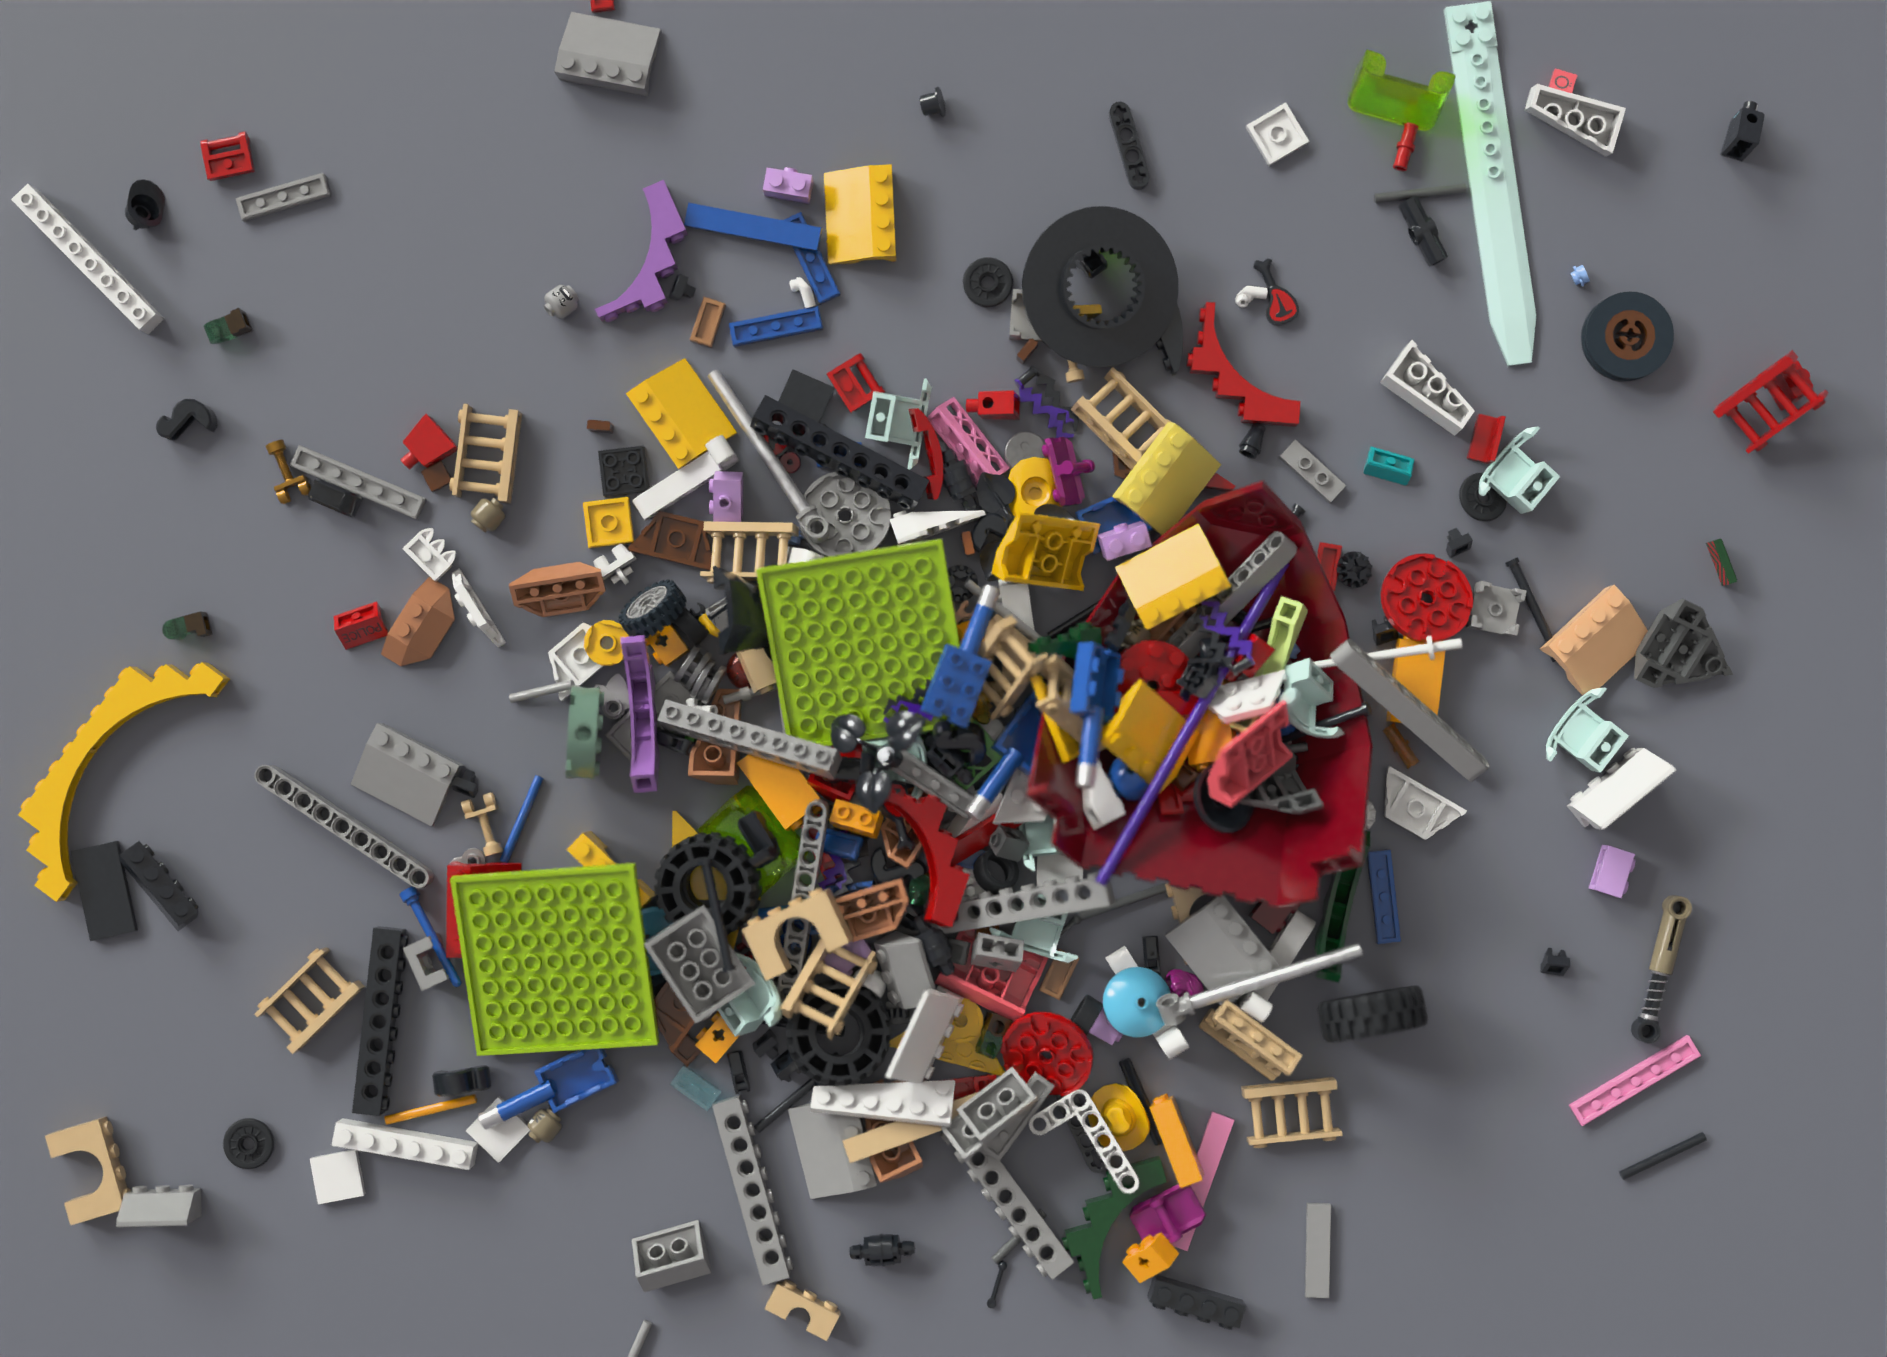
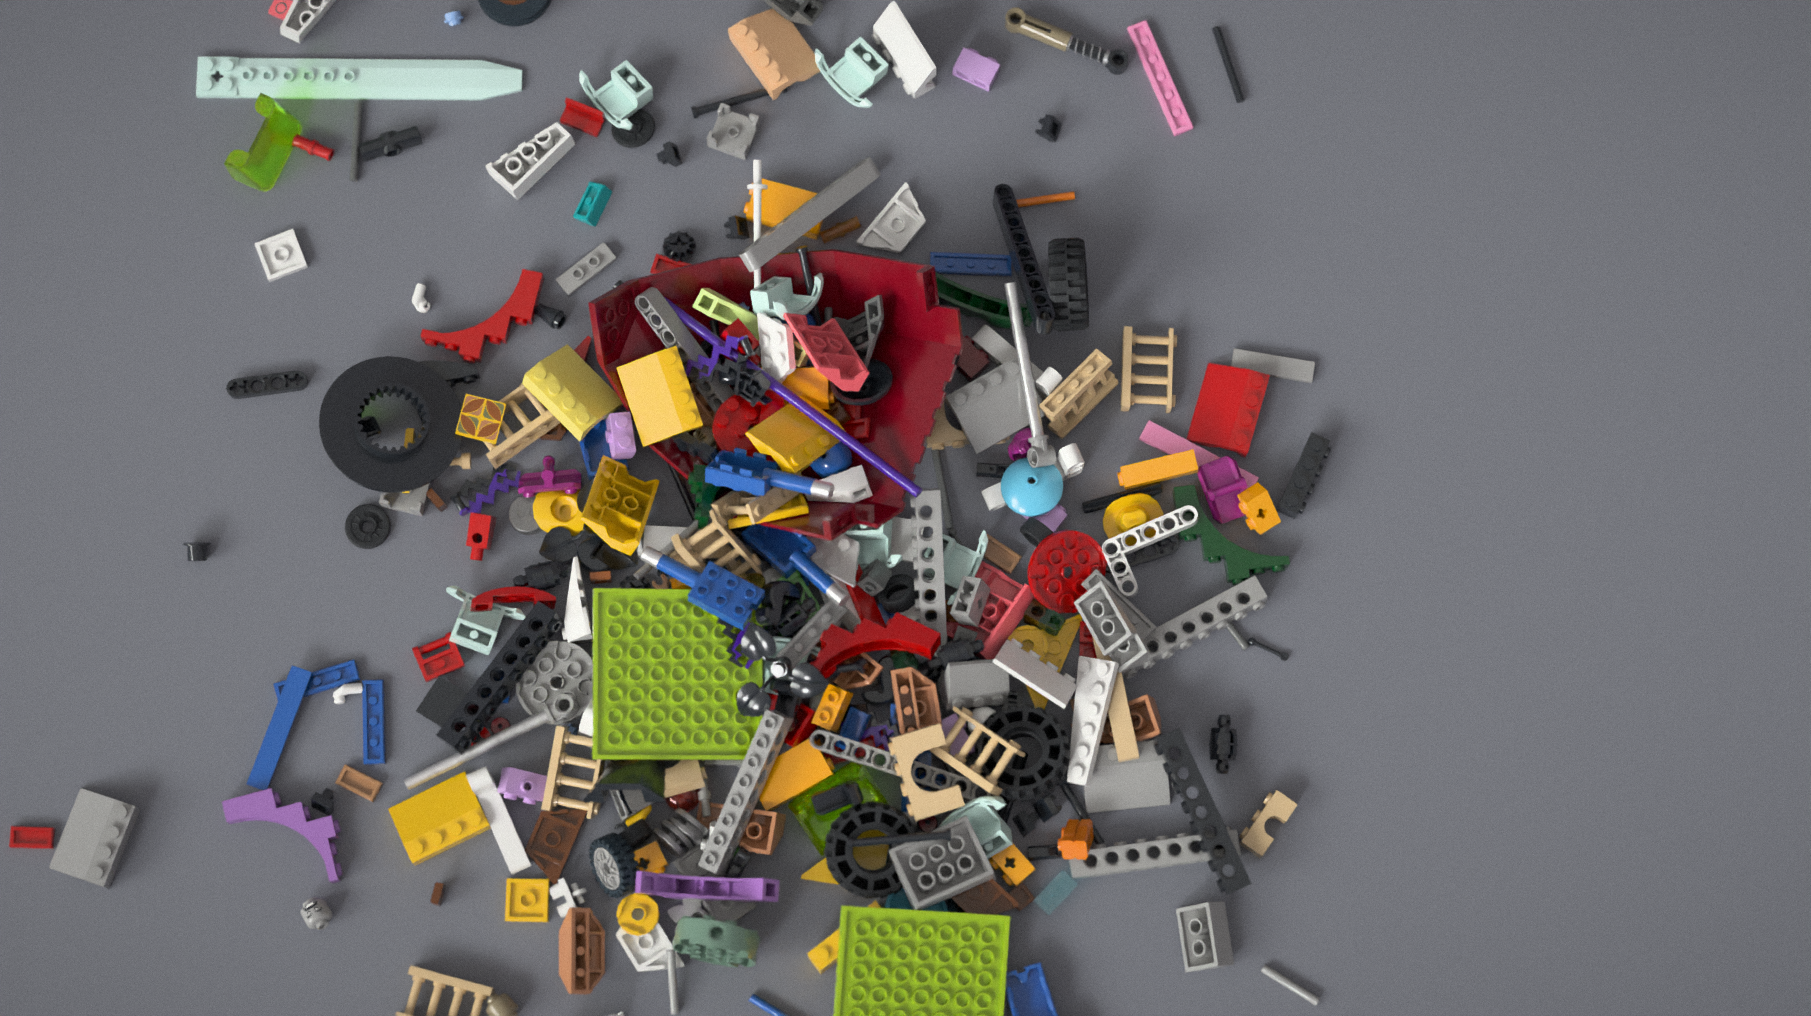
camera: 85 degrees left, 10 degrees down
(623, 471) = (482, 879): black tile -> none
(734, 1288) = (1239, 878): none -> black brick
(753, 1104) = (1076, 839): none -> orange brick
(788, 185) = (247, 690): lavender brick -> none
(860, 214) = (286, 630): yellow piece -> none
(965, 444) = (510, 567): bright pink fence -> none
(1122, 383) = (480, 418): none -> tile
(1261, 1207) = (1228, 408): none -> red piece
(1282, 305) = (433, 273): black piece -> none
(1393, 959) = (1023, 259): none -> black beam
(1443, 582) = (700, 173): red plate -> none
(1471, 969) = (1046, 199): none -> orange bar

